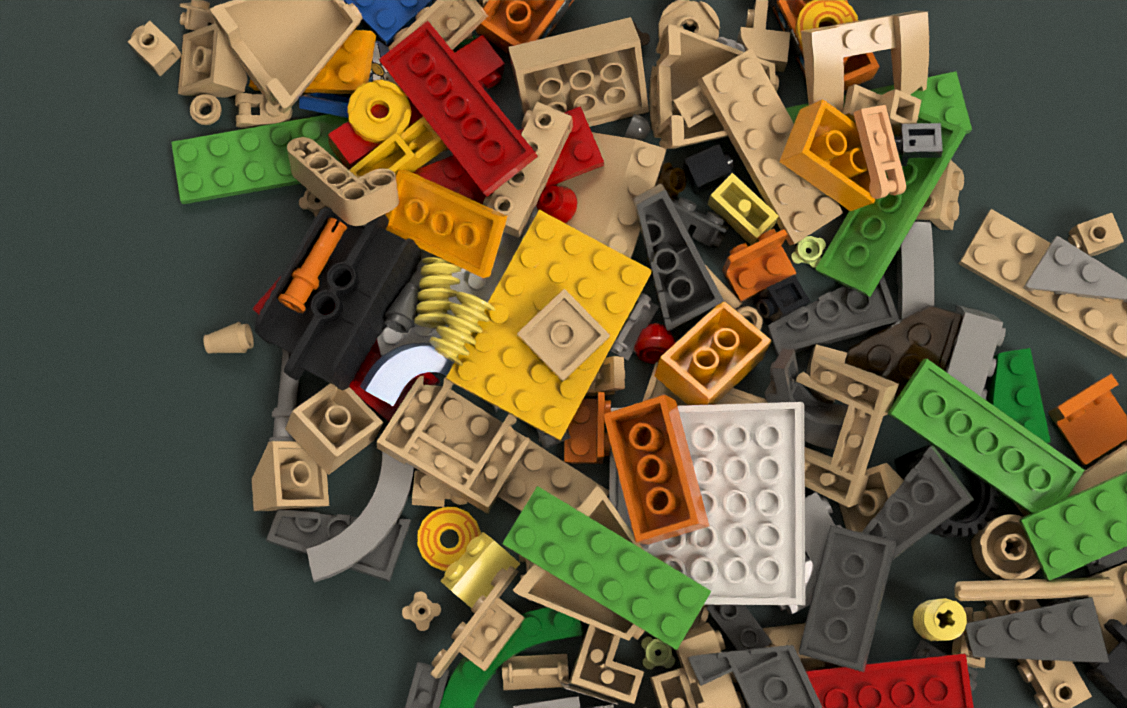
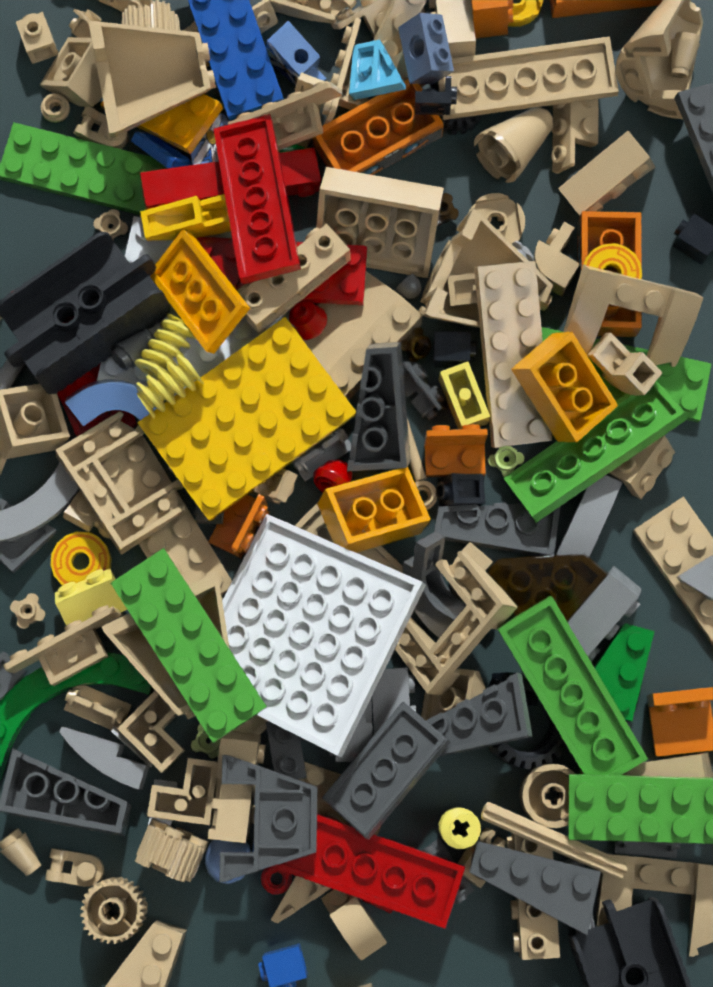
camera: 30 degrees right, 0 degrees up
(306, 278) = (59, 284): orange pin -> none
(349, 197) = (130, 234): tan beam -> none
(375, 93) = (192, 155): yellow tile -> none
(563, 335) = (251, 431): tan plate -> none
(655, 470) = (272, 582): orange brick -> none
(880, 152) = (602, 400): light nougat plate -> none
(919, 141) = (641, 407): bracket -> none

